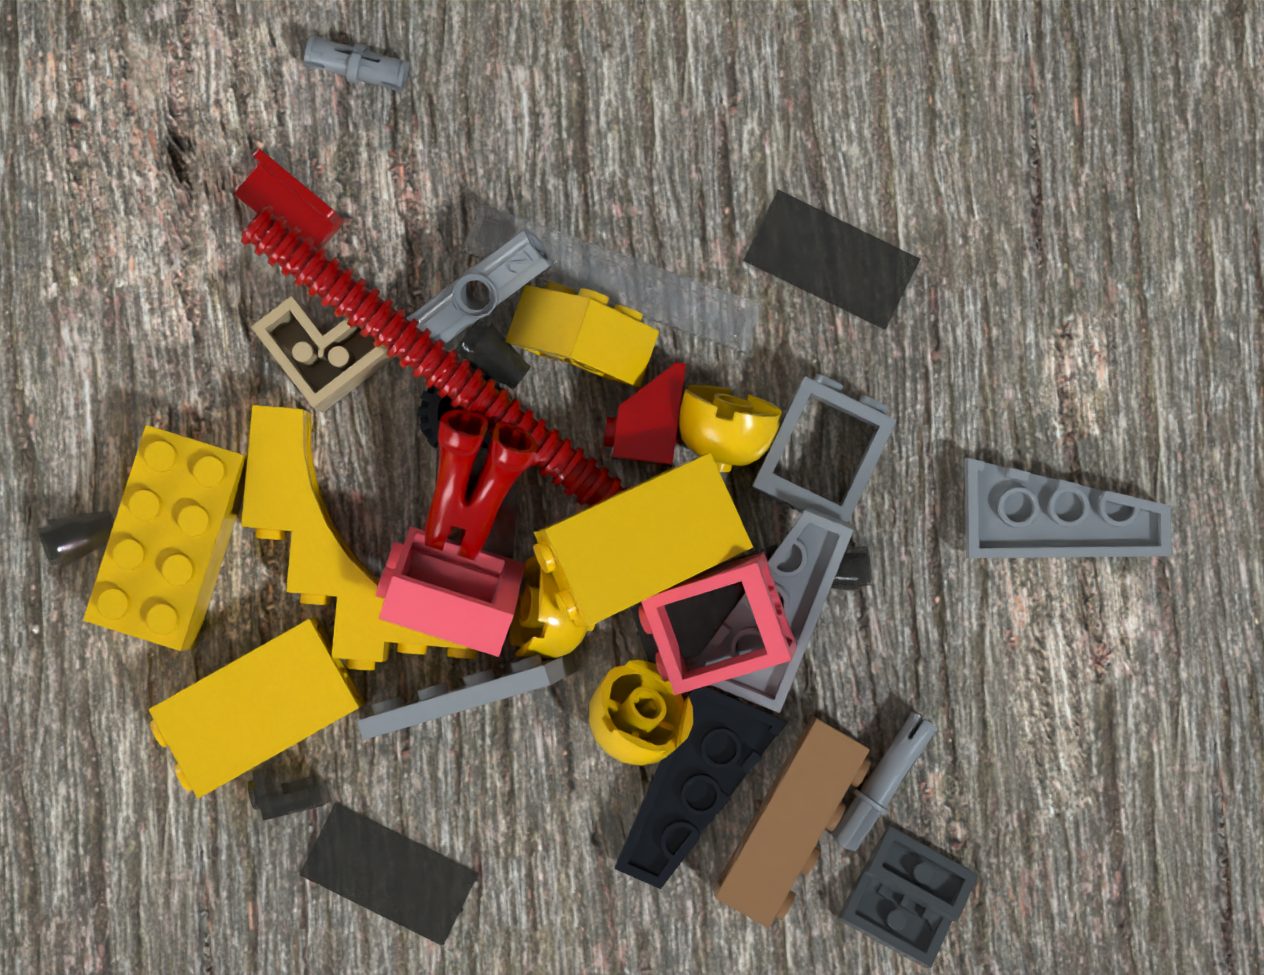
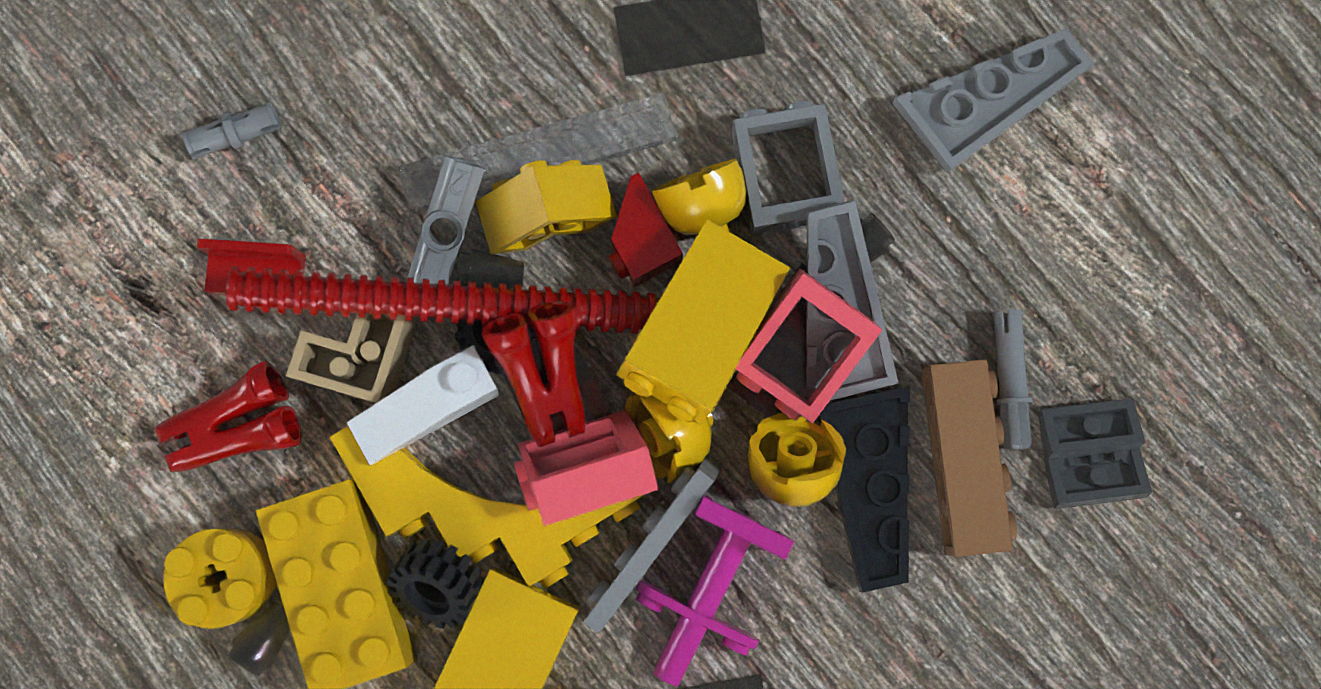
camera: 40 degrees left, 5 degrees down
(49, 452) = (193, 581): none -> yellow brick
(216, 315) = (253, 391): none -> red piece
(254, 597) = (435, 583): none -> black tyre
(349, 438) = (423, 405): none -> white slope
(461, 783) = (699, 611): none -> dark pink piece

